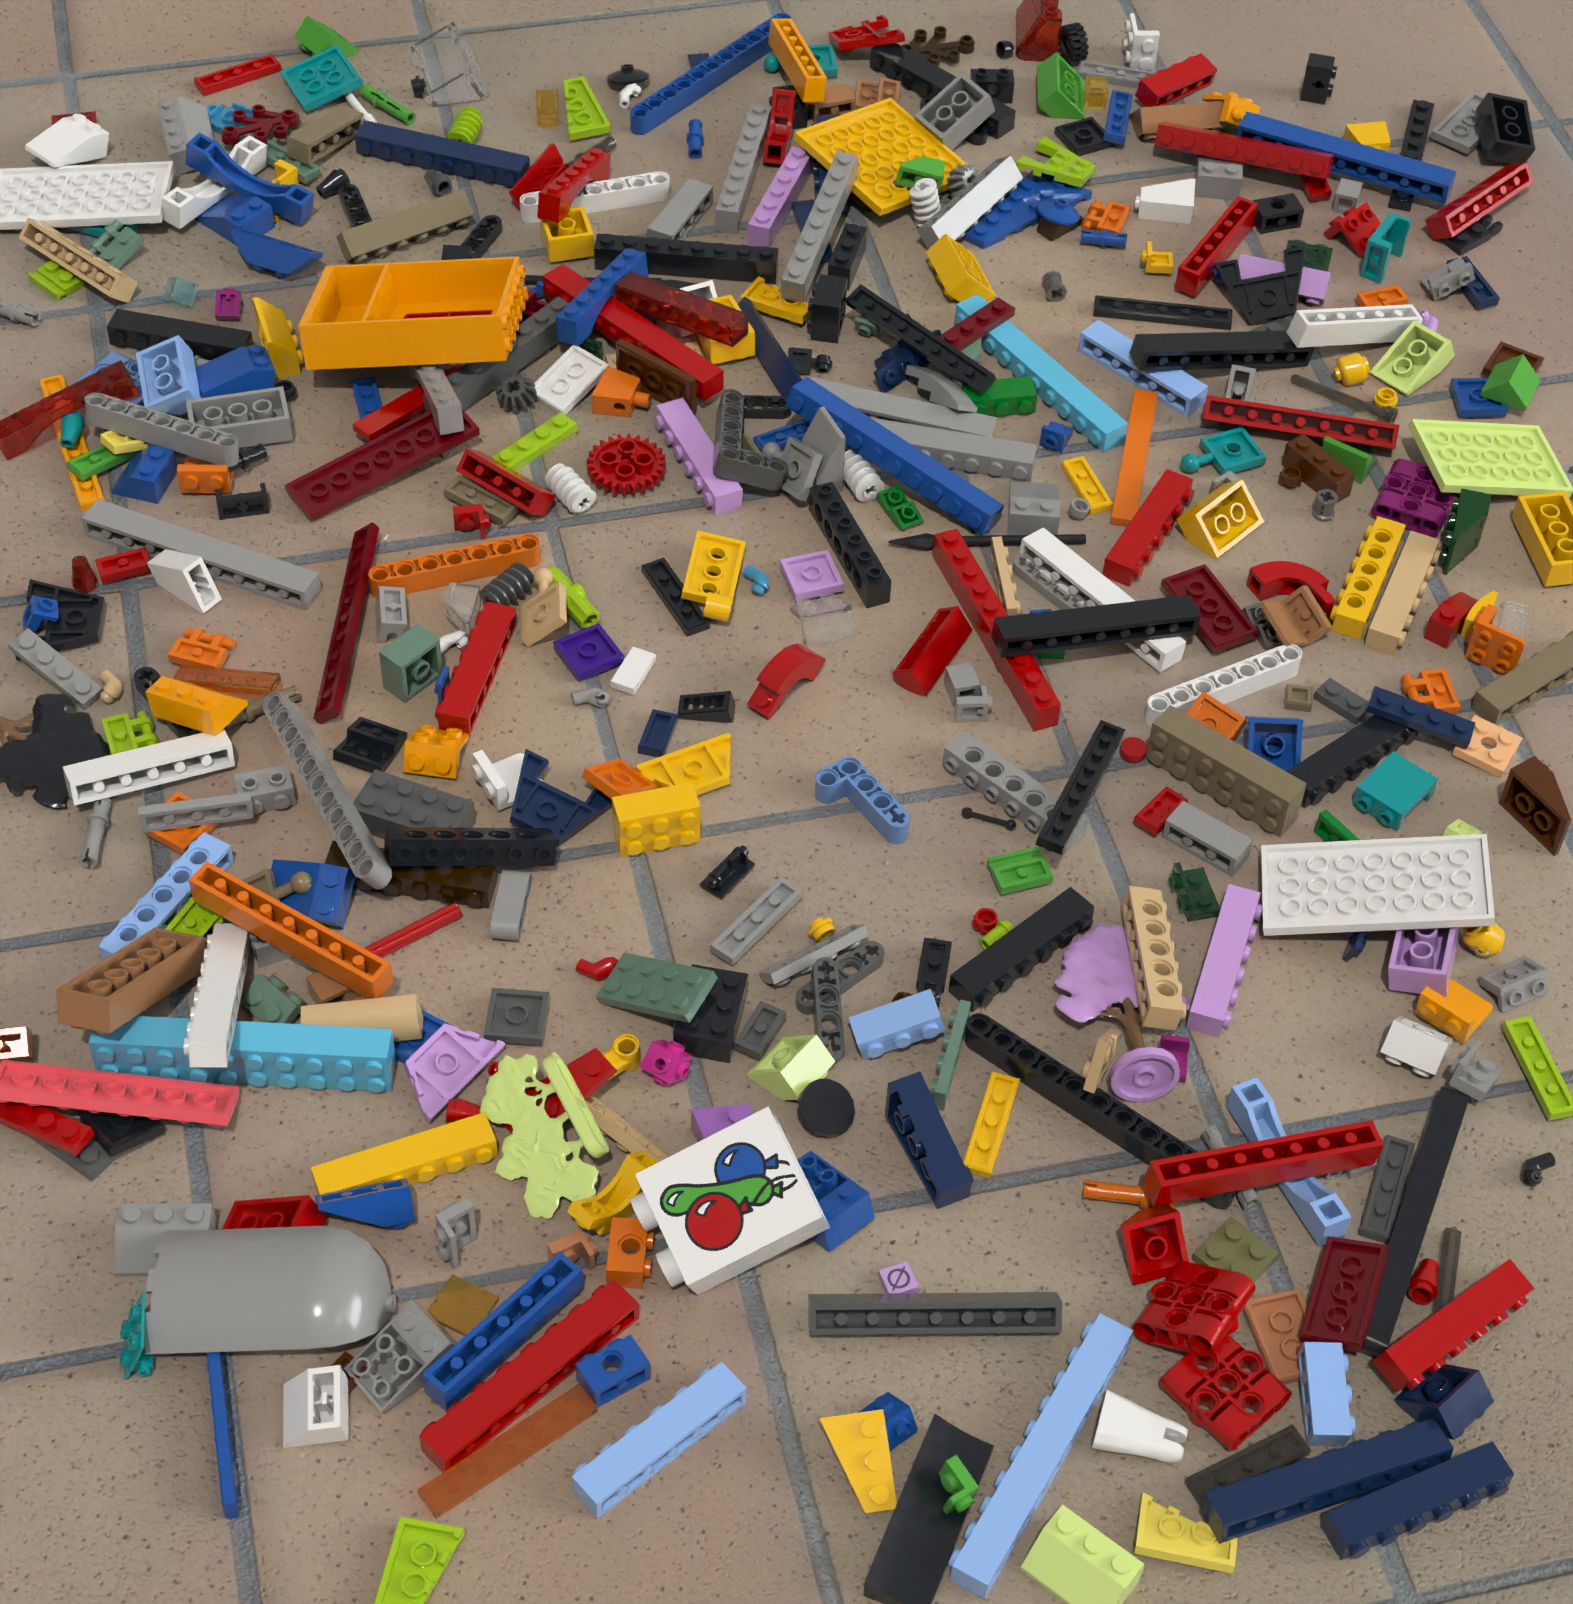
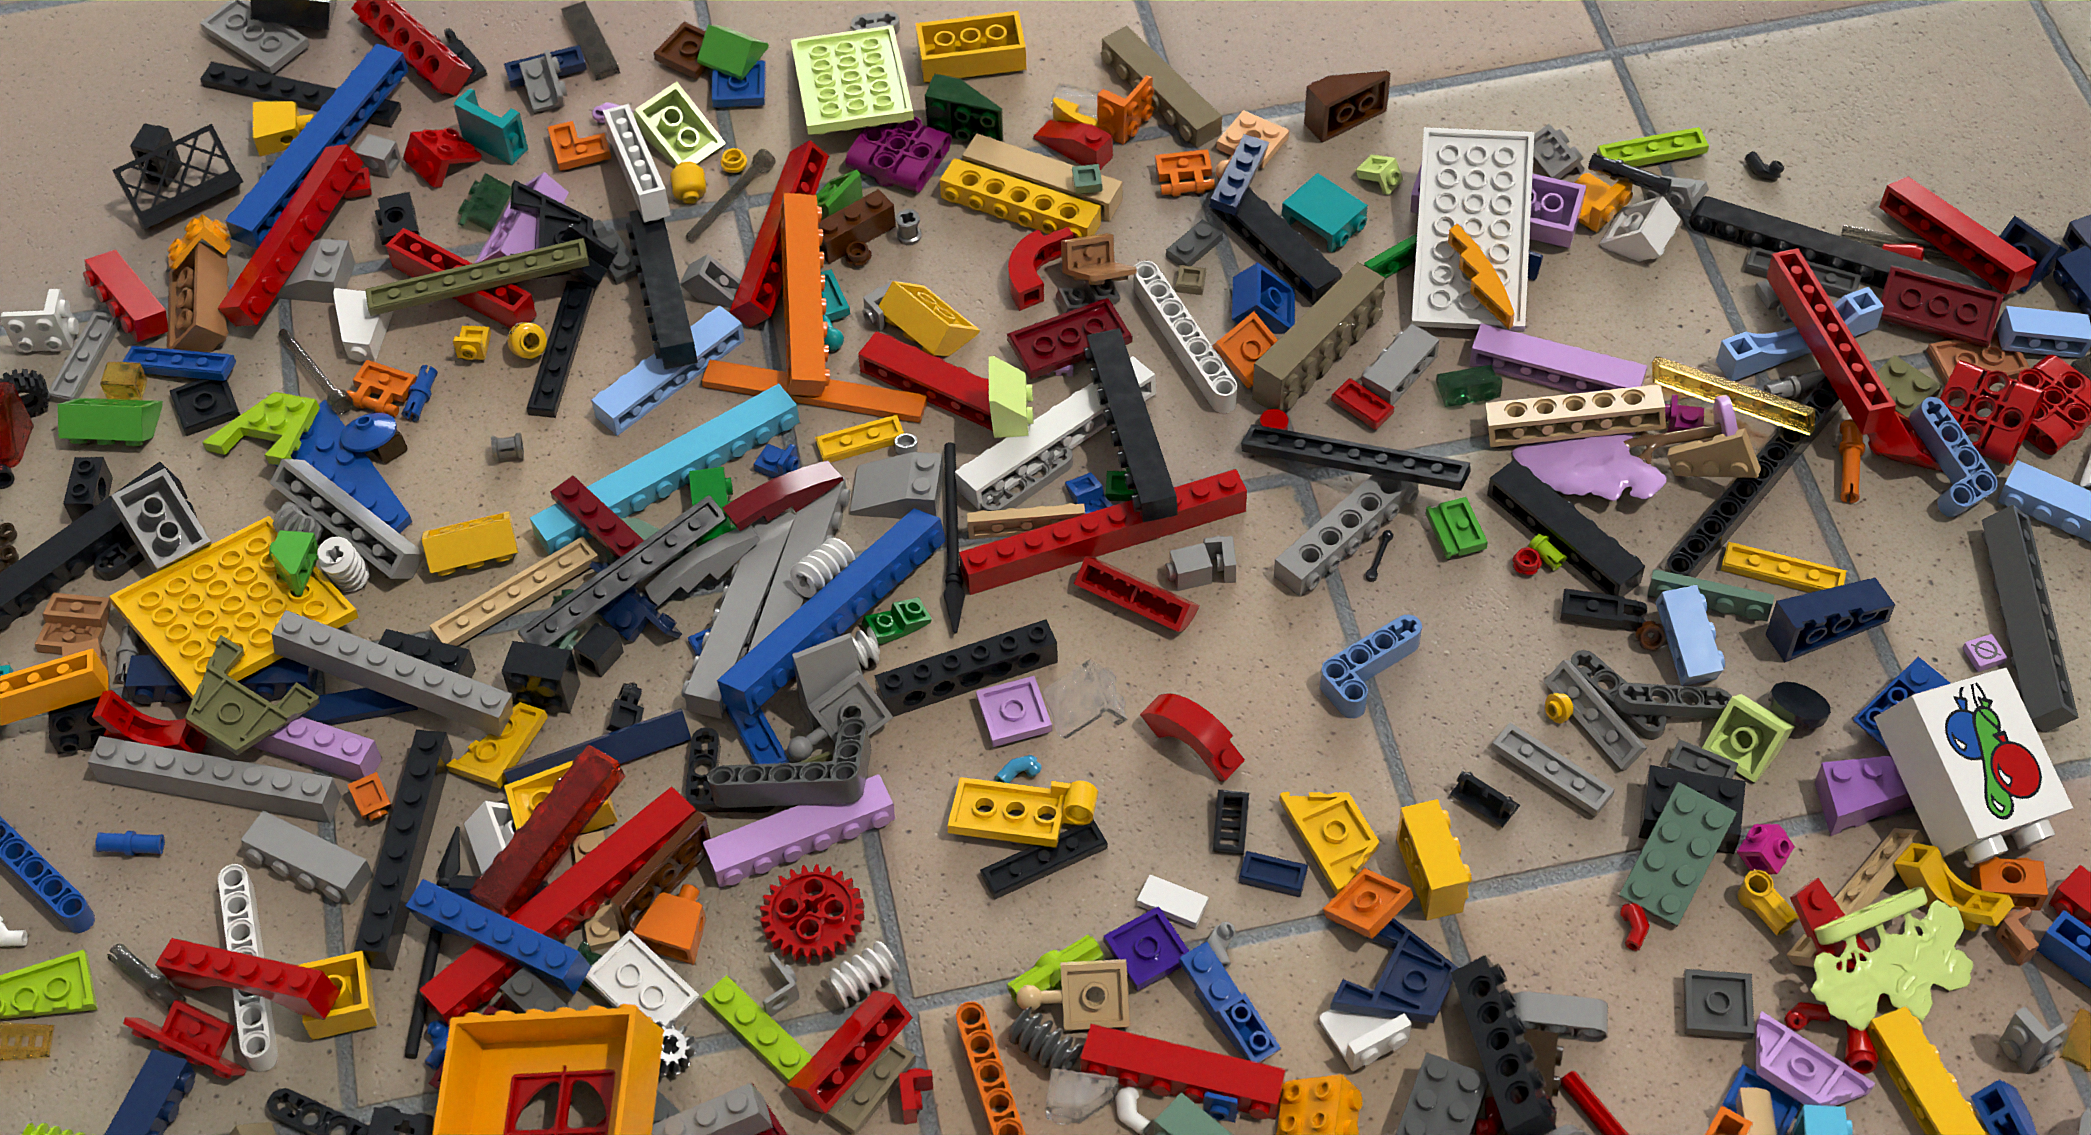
camera: 85 degrees left, 5 degrees up
(530, 700) = (1227, 1006): none -> blue slope
(567, 453) = (790, 990): none -> light grey bracket
(731, 236) = (370, 797): none -> orange bracket
(784, 149) = (233, 712): none -> olive wing
(862, 344) = (599, 649): none -> black brick
(908, 295) = (514, 593): none -> tan plate
(932, 445) = (820, 566): none -> white piece
(1008, 425) = (786, 491): none -> dark red slope
(1089, 194) = (337, 399): none -> clear smoke piece
(1112, 543) = (1009, 399): none -> yellowish green slope
(1131, 1265) = (1931, 422): none -> medium blue beam
(1160, 286) = (534, 345): none -> yellow head
(1190, 1086) = (1743, 398): none -> clear yellow tile
(1209, 244) = (476, 277): none -> olive tile
(1221, 426) = (803, 295): none -> orange brick
(1246, 306) = (599, 256): none -> black panel
(1279, 100) = (187, 198): none -> black fence
(1303, 886) = (1484, 280): none -> light orange slope
(1389, 606) = (1087, 179): none -> sand green plate
(1473, 1006) = (1619, 170): none -> black pin
(1512, 308) = (592, 42): none -> clear smoke tile

